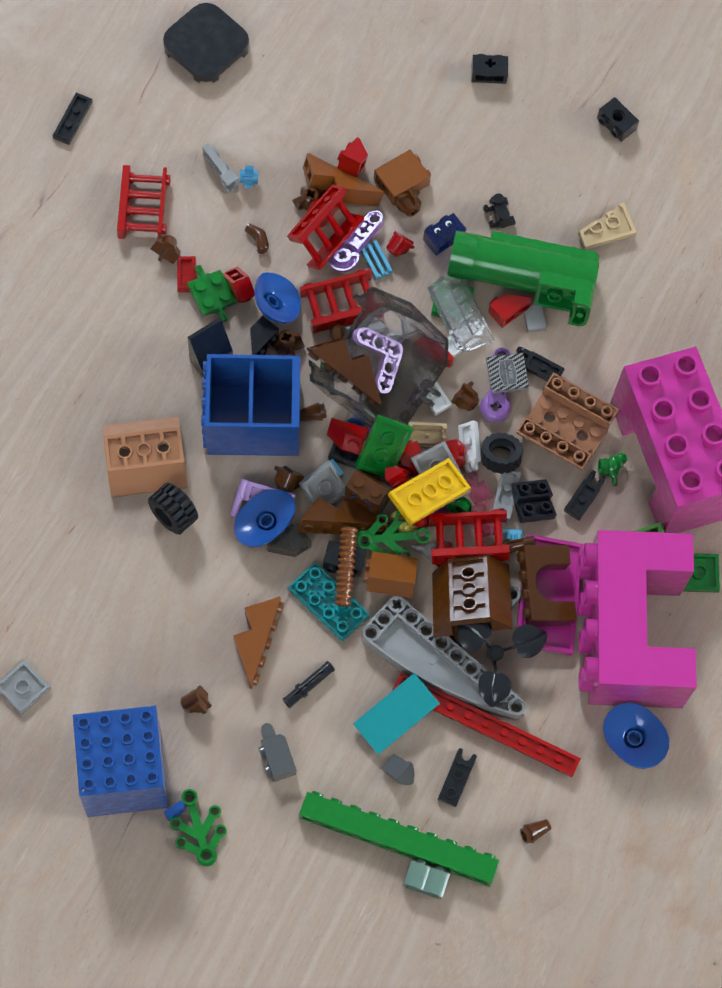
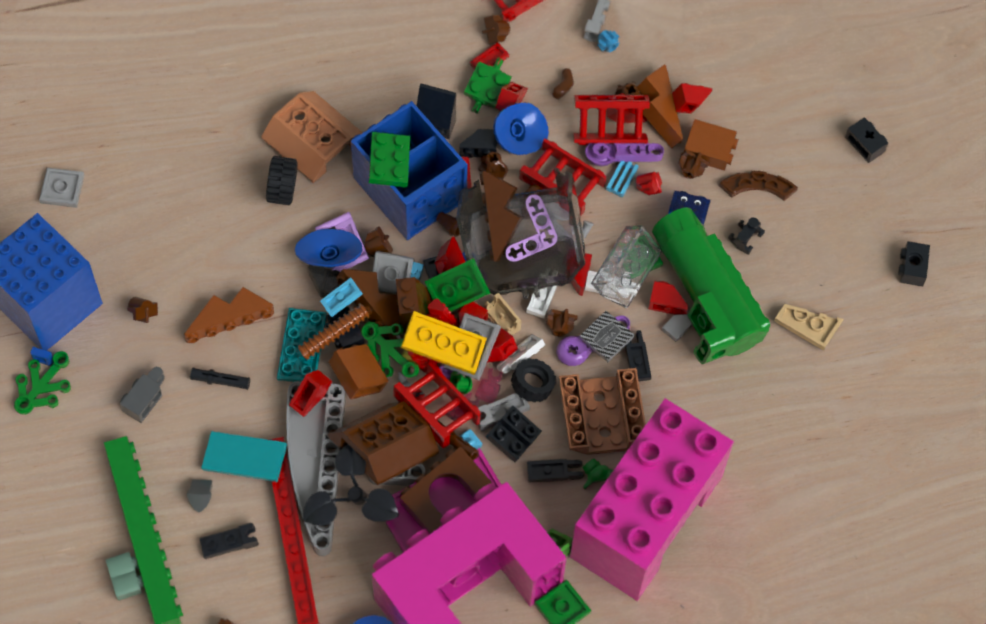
camera: 55 degrees right, 5 degrees down
(247, 409) = (389, 159): none -> green plate
(324, 538) = (341, 297): none -> medium azure plate
(386, 622) = (310, 392): none -> red slope
(459, 168) = (758, 181): none -> reddish brown tile

